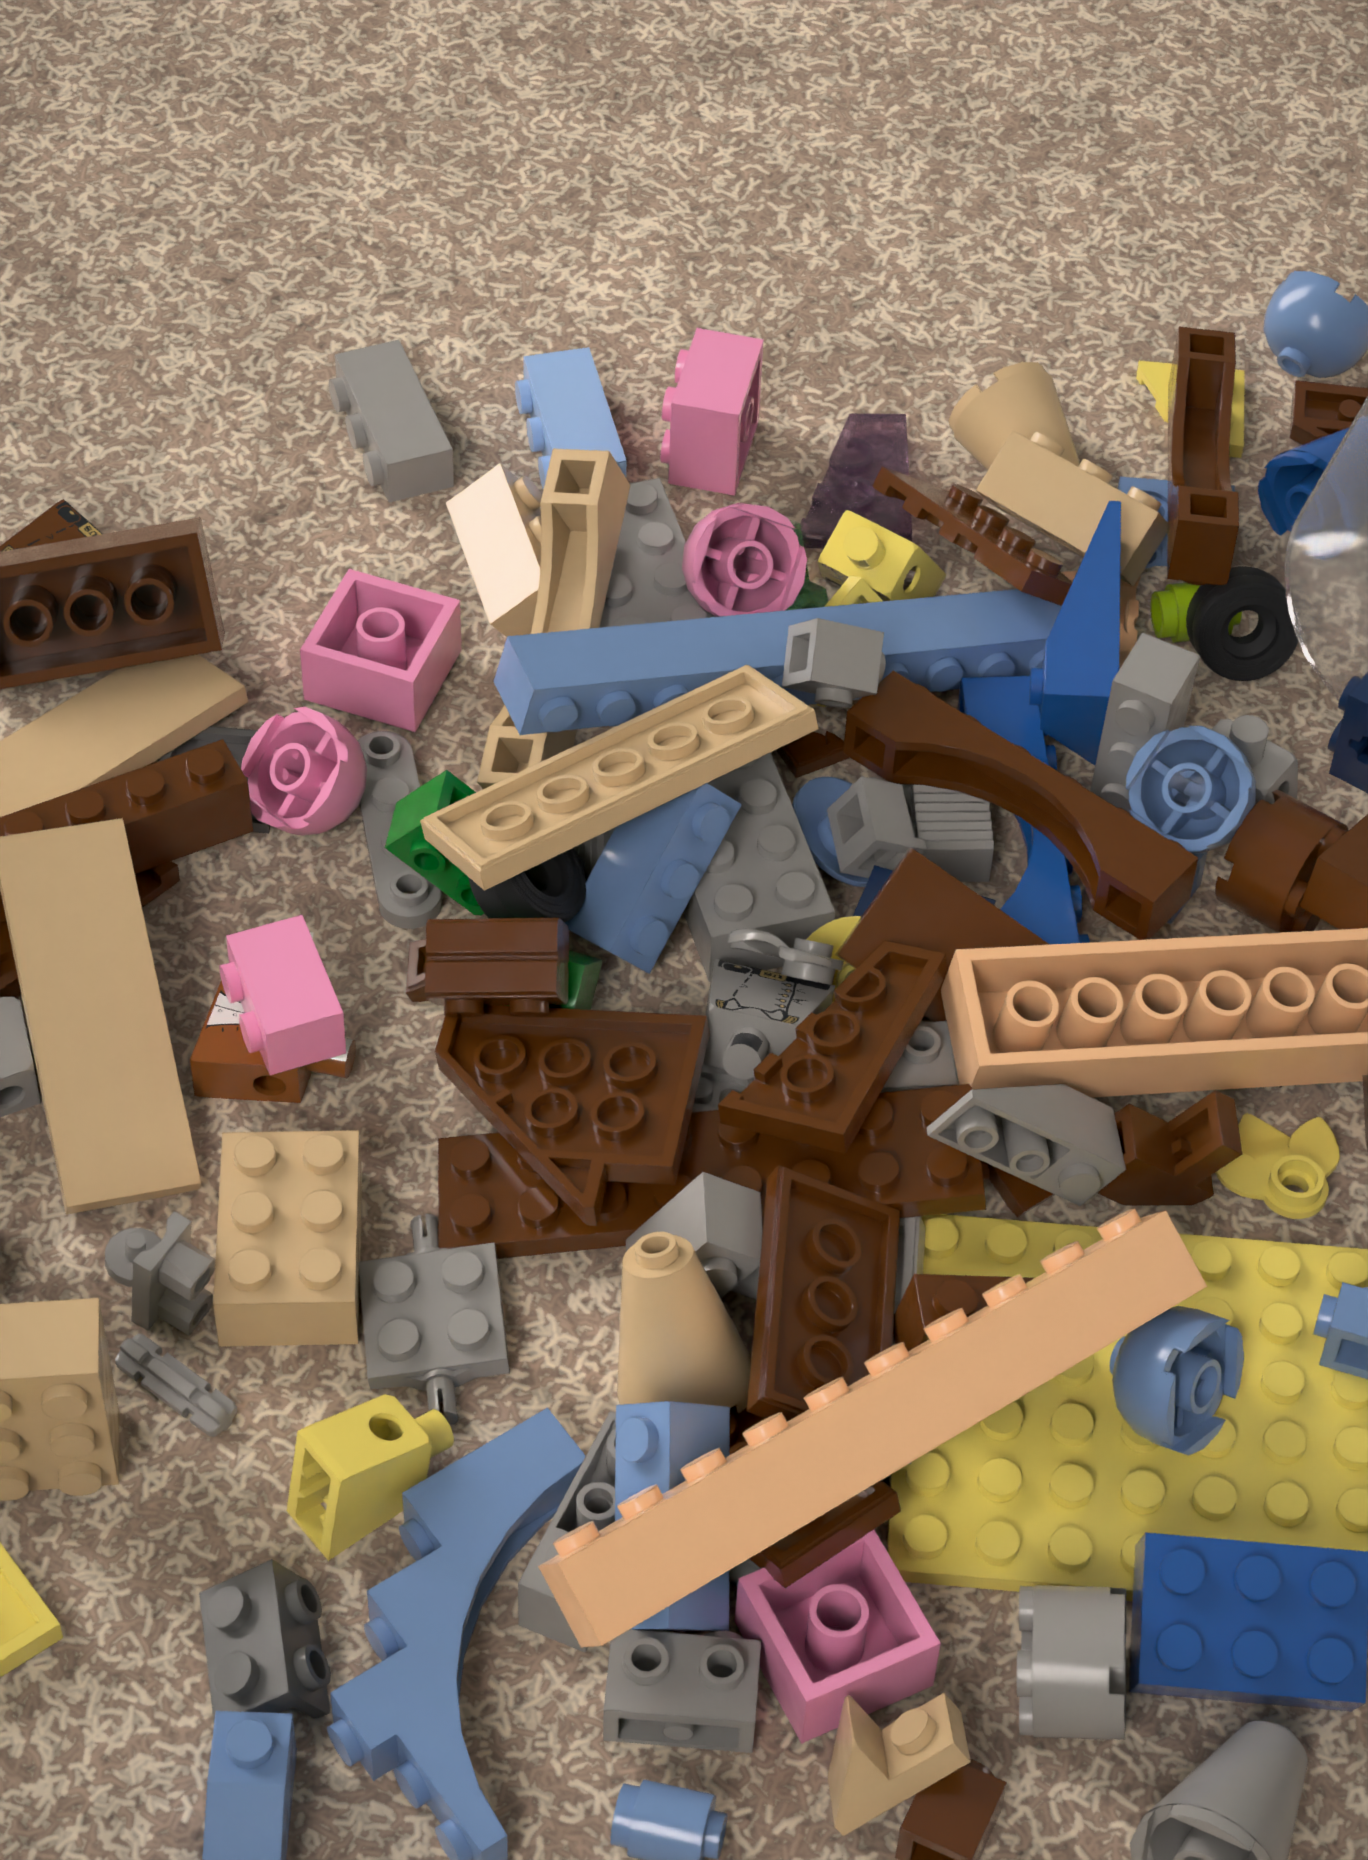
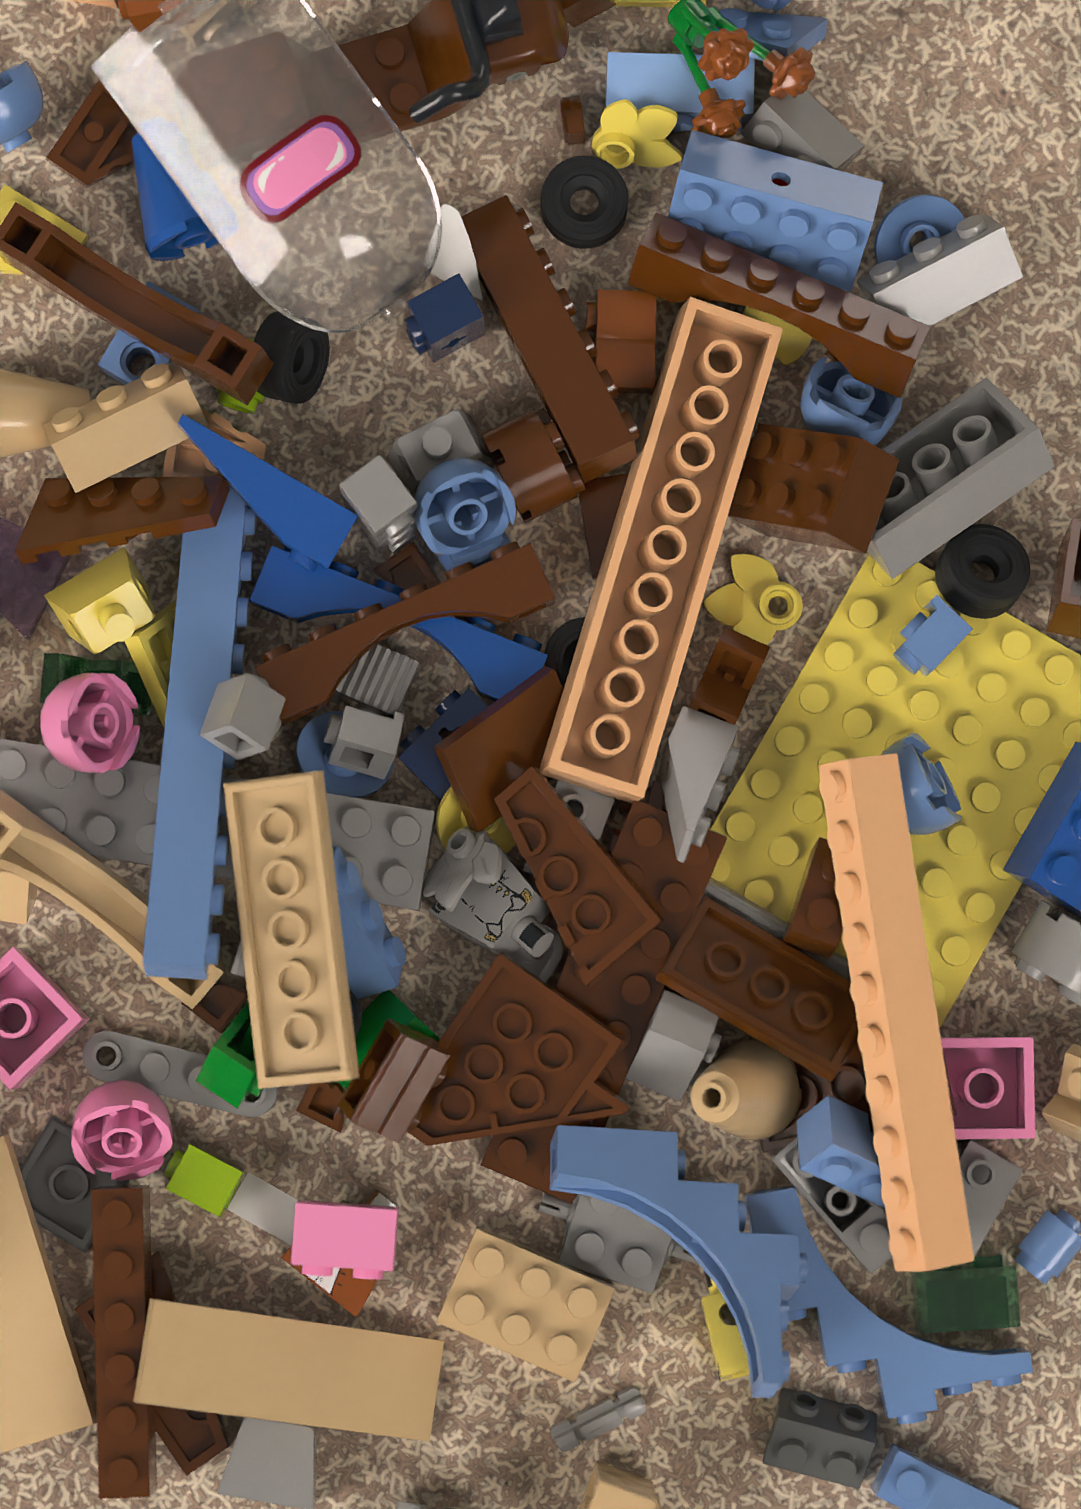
camera: 65 degrees left, 35 degrees up
(163, 1274) = (523, 1405): light grey hips -> none
(283, 877) = (203, 1179): none -> lime brick
(460, 1414) = (750, 1269): none -> medium blue arch
(545, 1741) = (967, 1296): none -> clear green brick

